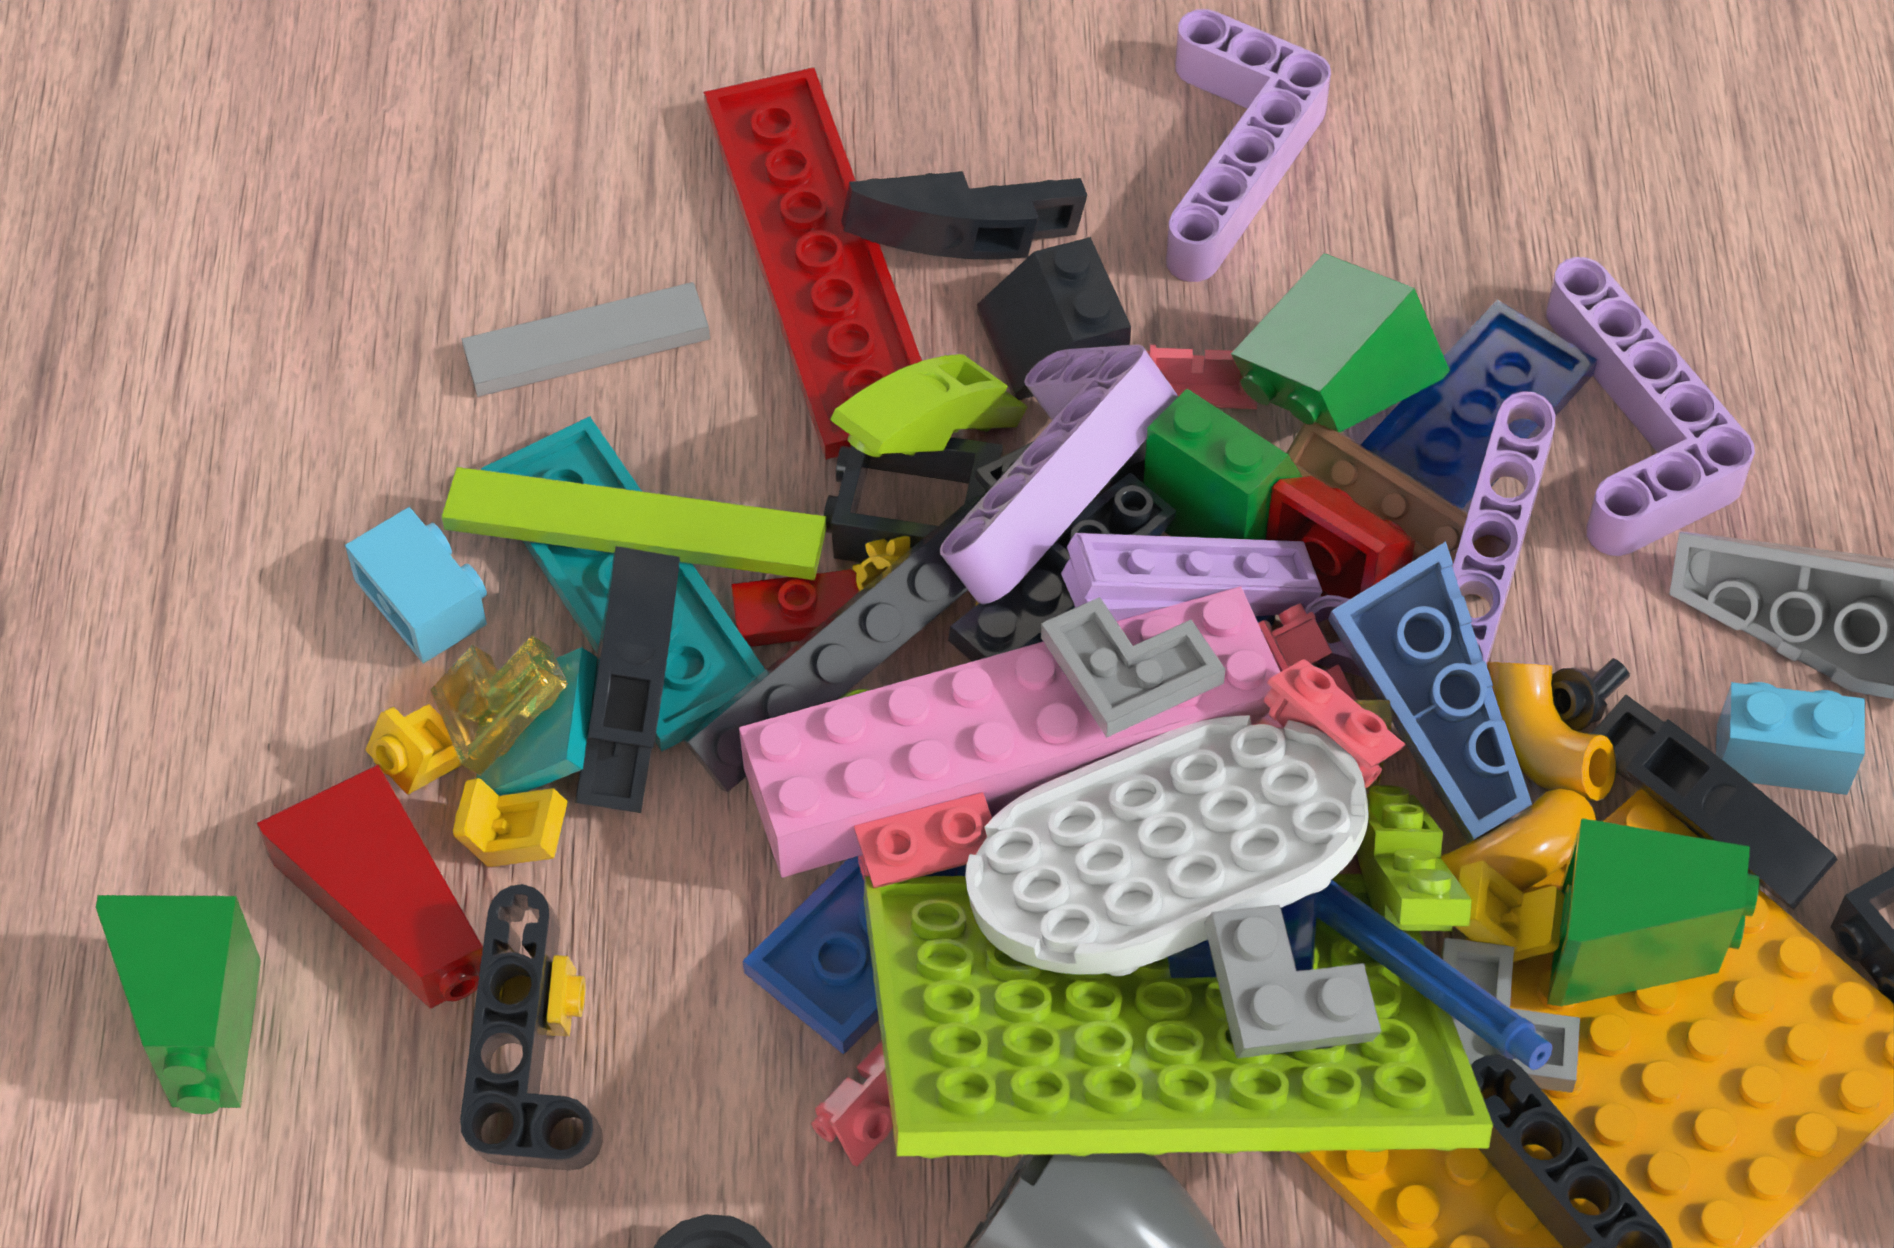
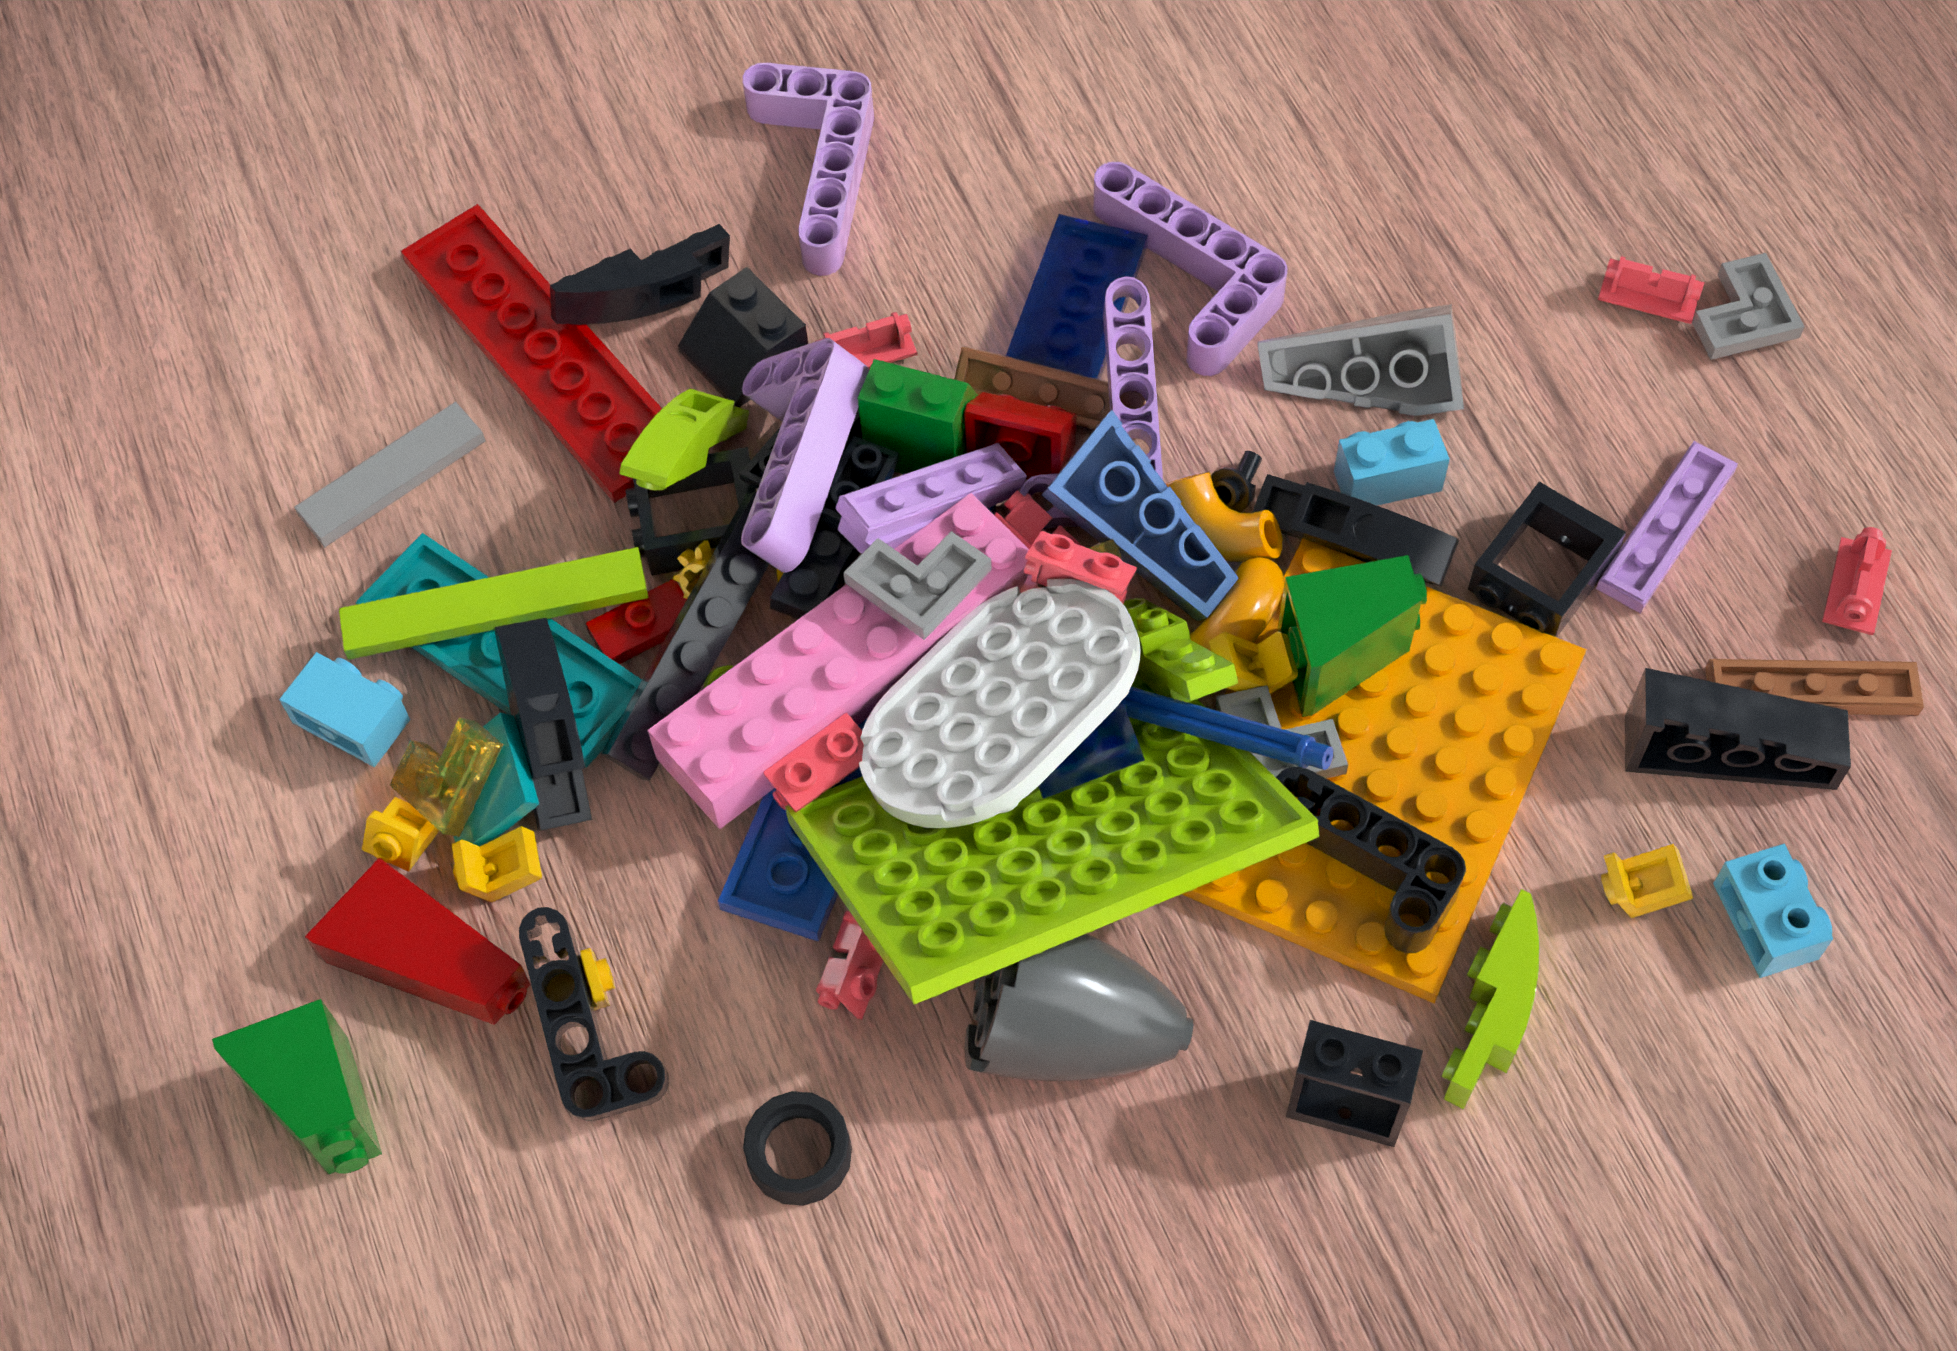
camera: 20 degrees left, 5 degrees up
(1272, 1004) = (1128, 790): light grey plate -> none
(1340, 347) = (965, 288): slope -> none

